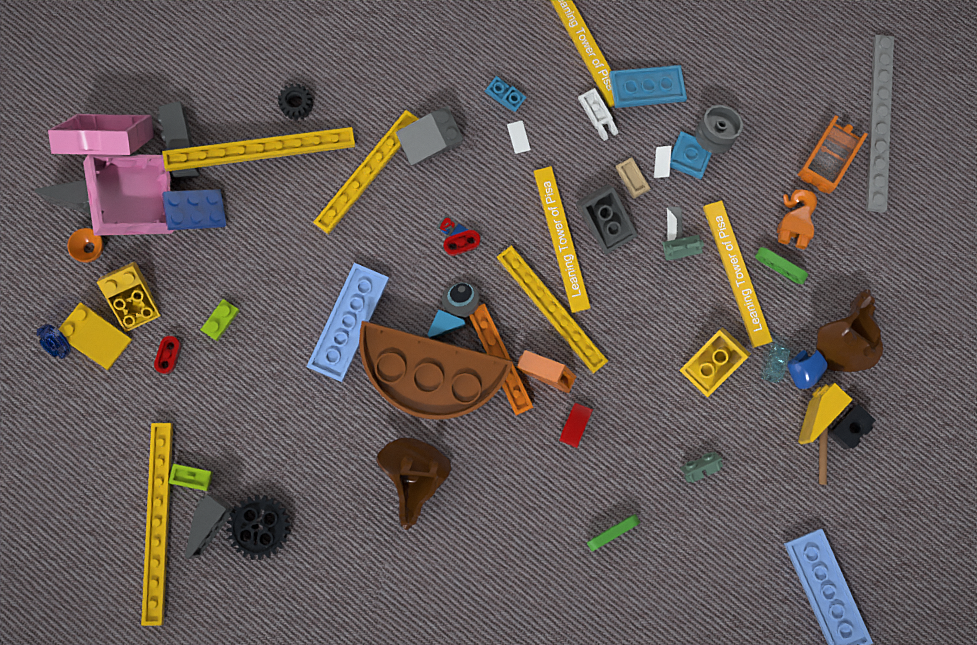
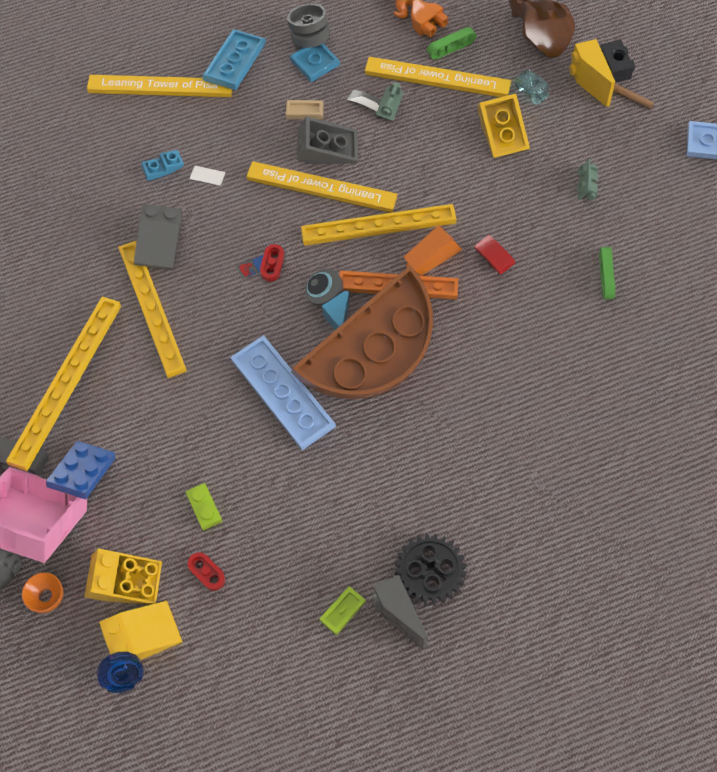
camera: 55 degrees left, 15 degrees down
(157, 524) = (371, 668): yellow plate -> none
(298, 111) = (37, 324): black tyre -> none
(416, 472) = (469, 401): reddish brown animal -> none
(597, 113) = (231, 105): white hinge -> none
(662, 161) = (306, 81): white sticker -> none
(807, 370) = (553, 65): blue piece -> none

